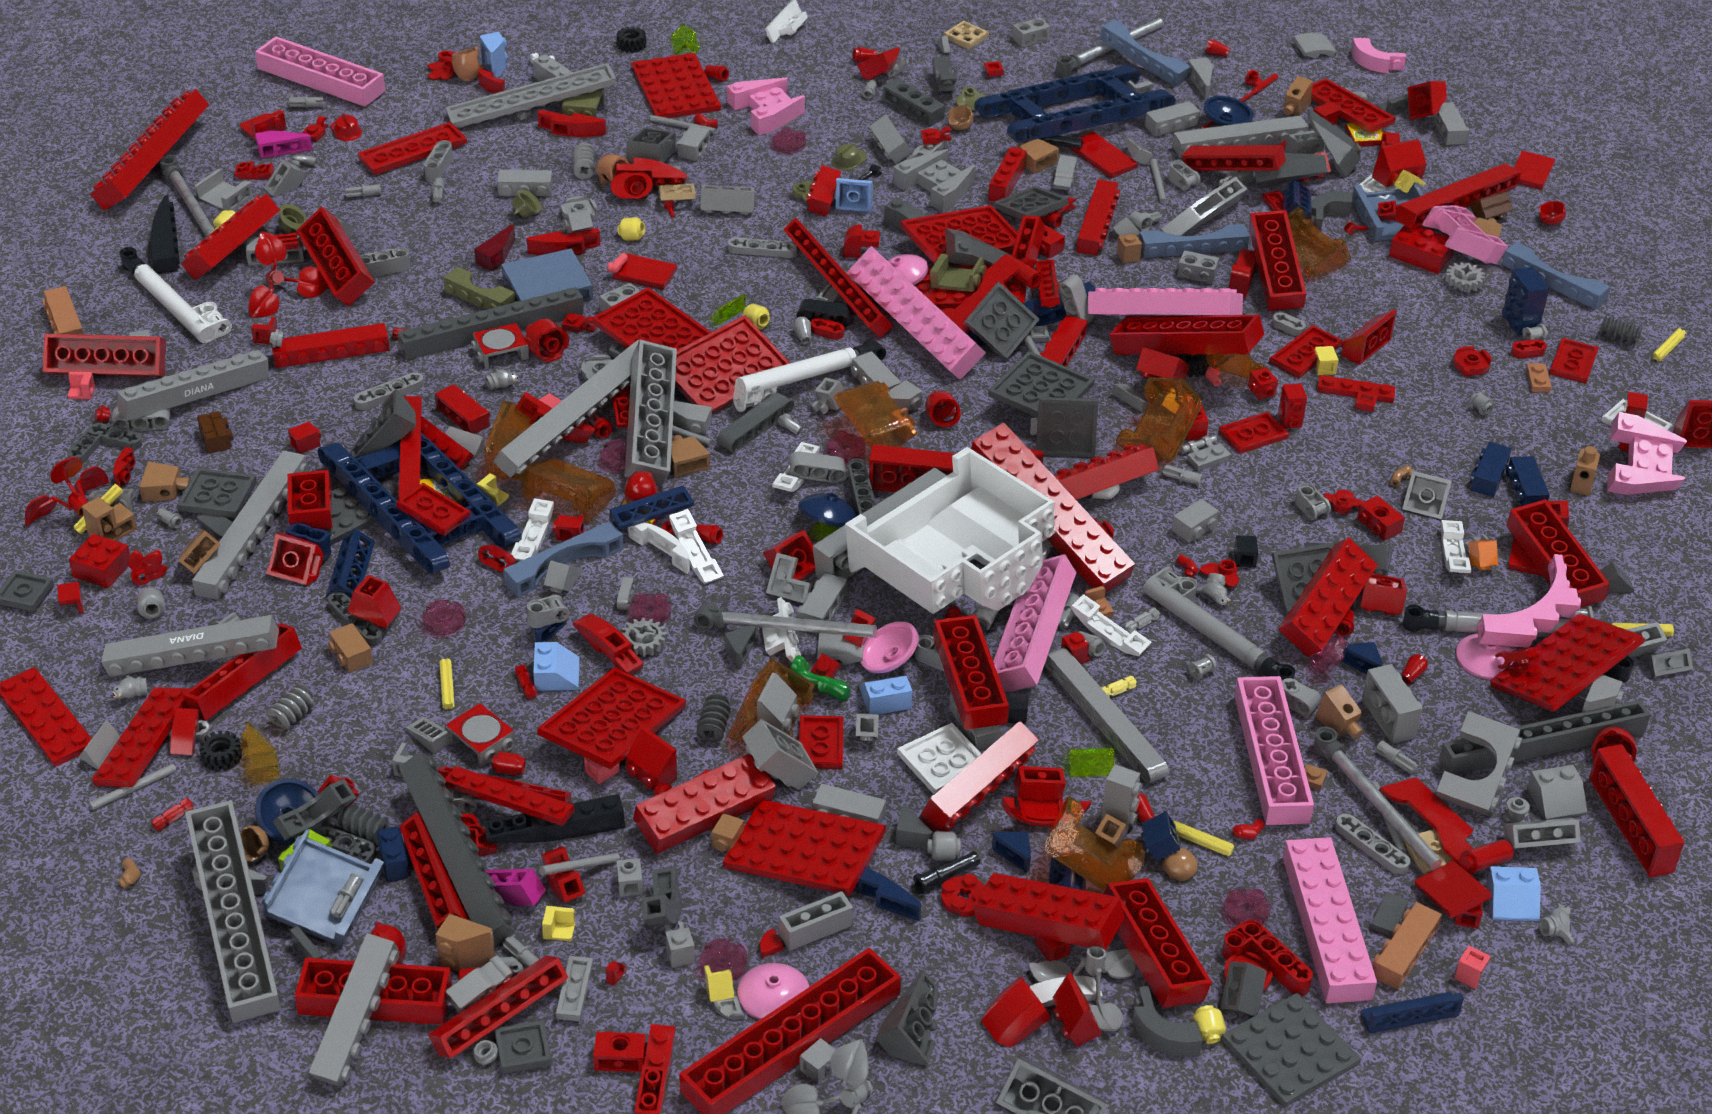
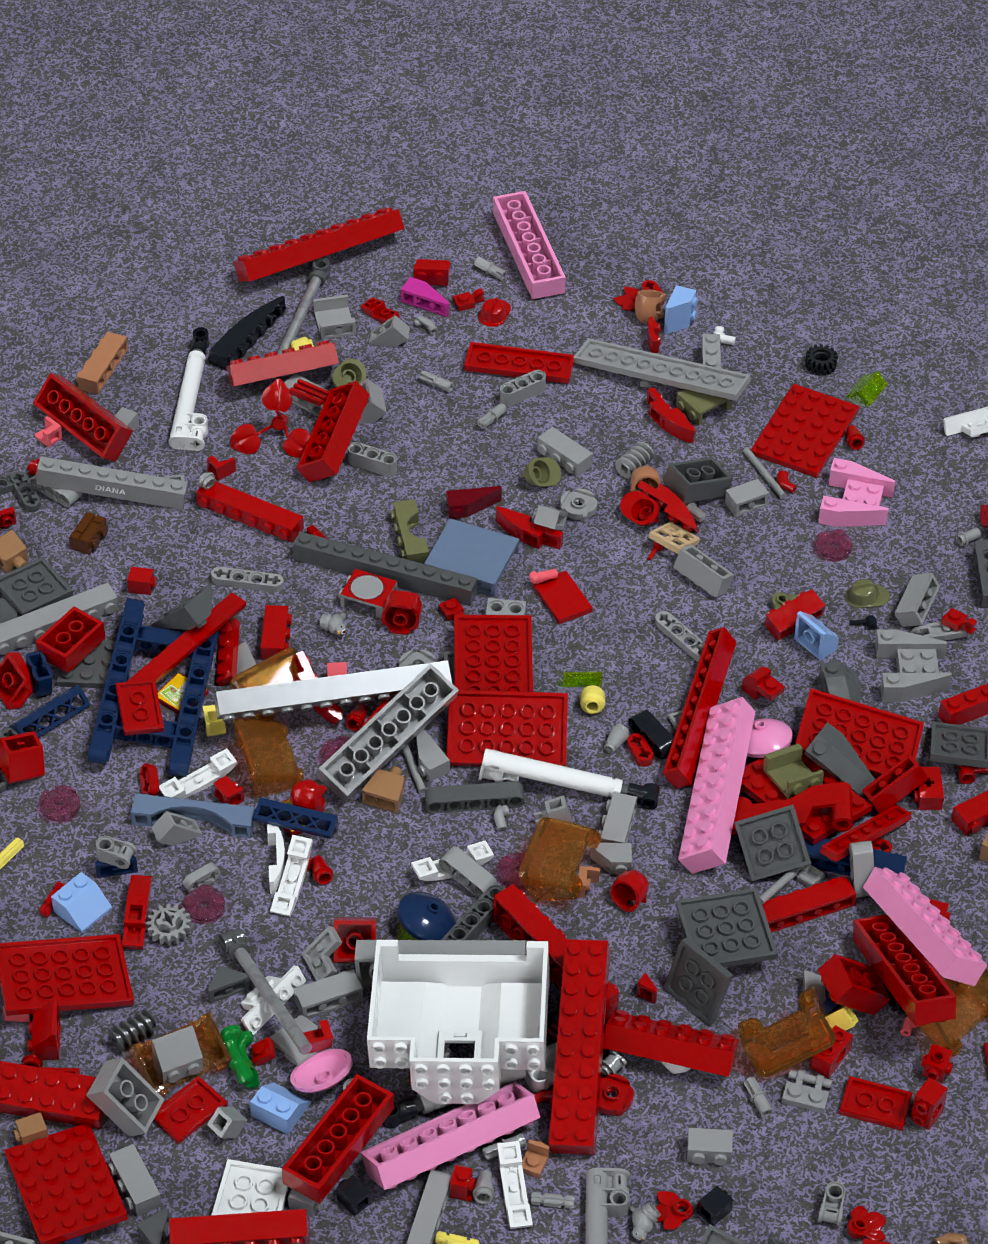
camera: 45 degrees right, 5 degrees up
(631, 229) = (595, 550): light yellow head -> none
(1190, 565) = (655, 1183): red arm -> none

